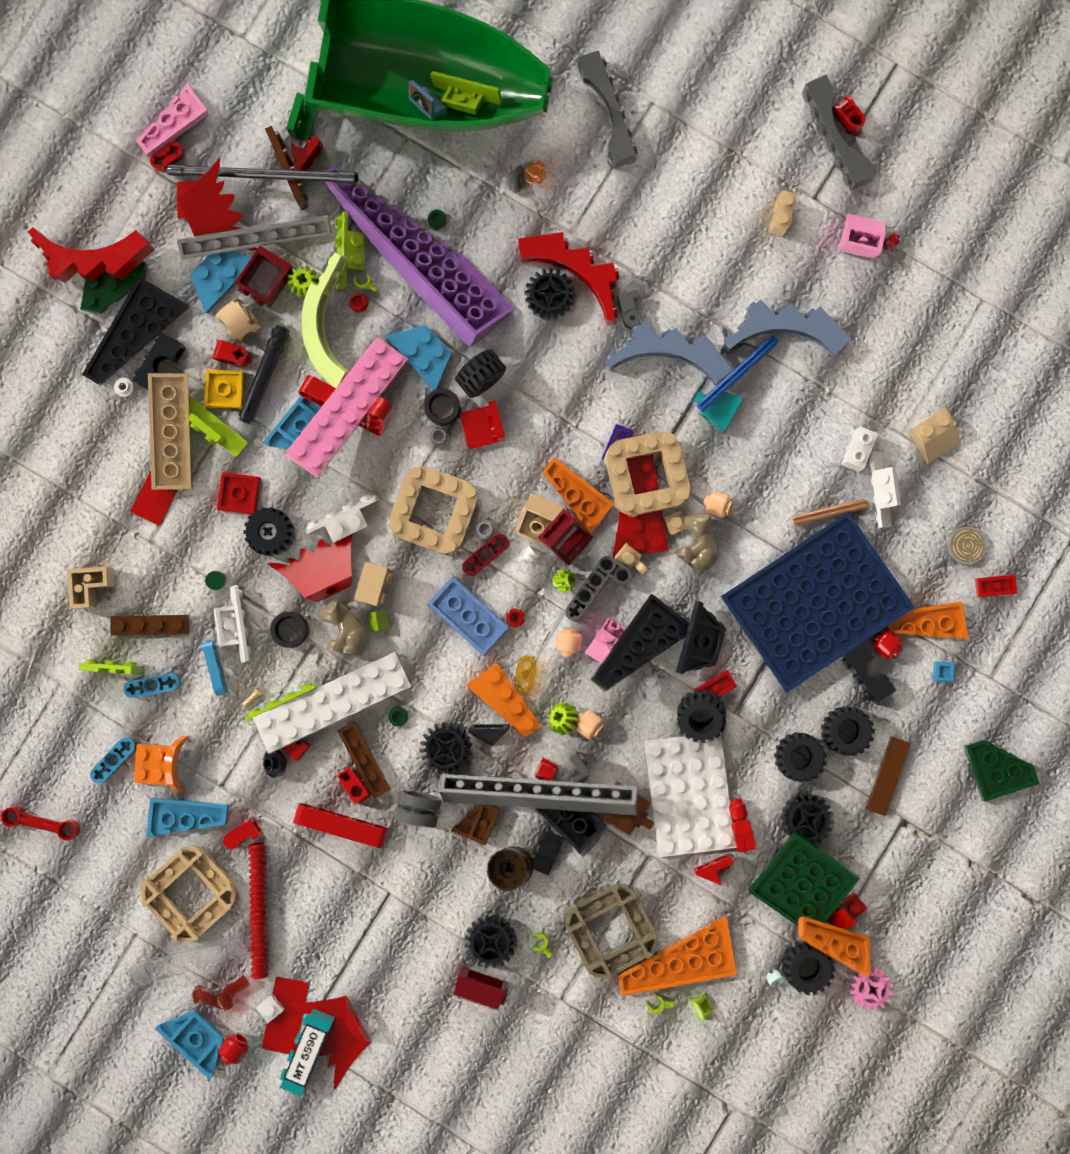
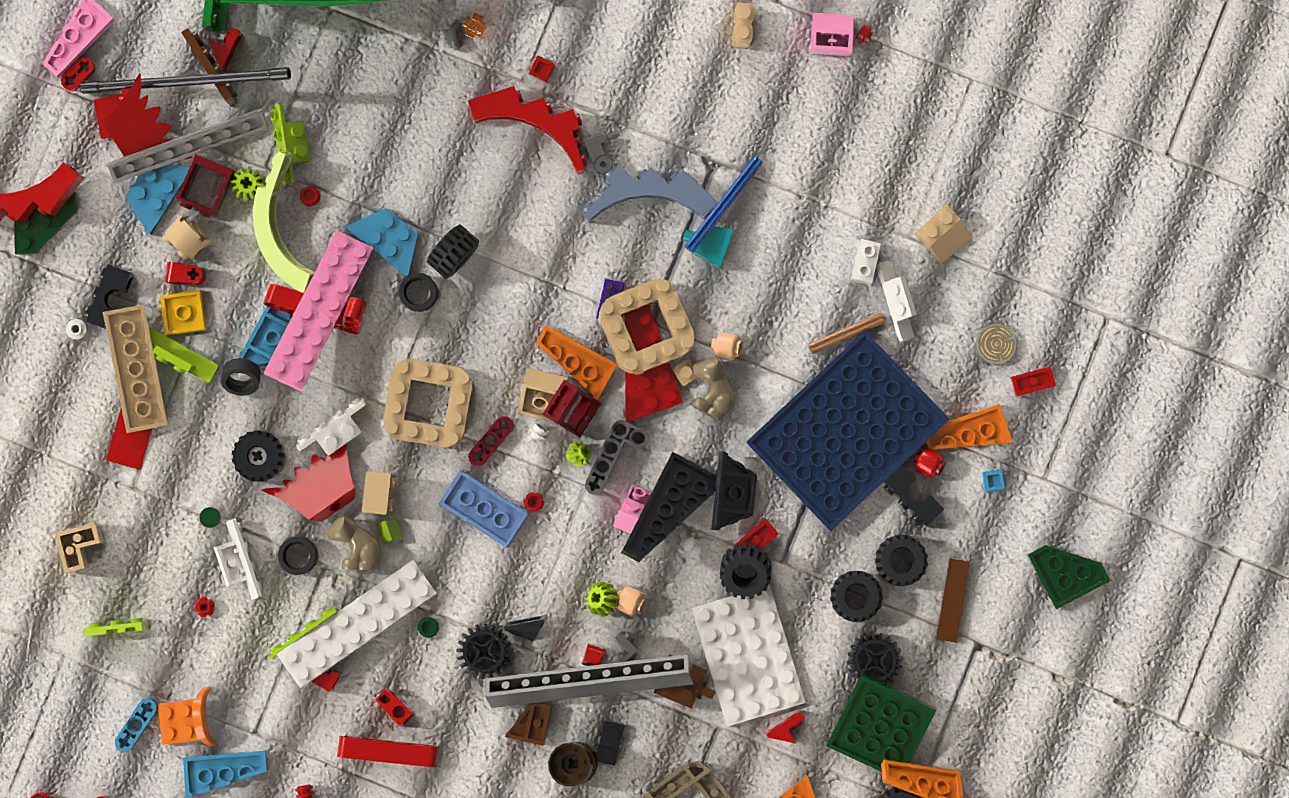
camera: 15 degrees left, 0 degrees up
(139, 321) = (80, 256): black wing -> none
(139, 693) = (150, 650): dark azure beam -> none
(149, 625) = (148, 576): reddish brown plate -> none
(195, 657) = (205, 612): none -> red plate
(214, 667) = (226, 609): dark azure beam -> none
(235, 837) = (280, 782): red leg -> none
(238, 493) = (218, 421): red tile -> none
(258, 691) = (271, 633): tan piece -> none
(269, 446) = (242, 366): none -> black tyre
(274, 763) = (307, 698): black plate -> none
(275, 347) = (229, 261): black cylinder -> none
(364, 759) = (400, 678): reddish brown plate -> none
(369, 285) = (318, 175): lime piece -> none
(418, 808) = (466, 719): dark grey wheel -> none
(431, 268) = (377, 144): medium lavender wedge -> none
(437, 219) = (377, 92): dark green tile -> none
(438, 436) = (420, 324): light grey plate -> none
(482, 426) = (464, 305): red bracket -> none
(484, 529) = (485, 414): light grey plate -> none
(502, 696) = (531, 585): orange wing -> none
(525, 674) = (554, 559): clear yellow plate -> none
(542, 293) = (520, 152): black gear -> none
(569, 642) = (594, 517): light nougat head -> none
(578, 828) = (636, 709): black wedge -> none
(590, 223) = (542, 69): none -> red tile
(630, 557) = (644, 418): tan plate -> none
(741, 826) = (807, 679): red piece -> none
(788, 320) = (741, 143): sand blue arch -> none
(847, 912) = (932, 749): red slope -> none

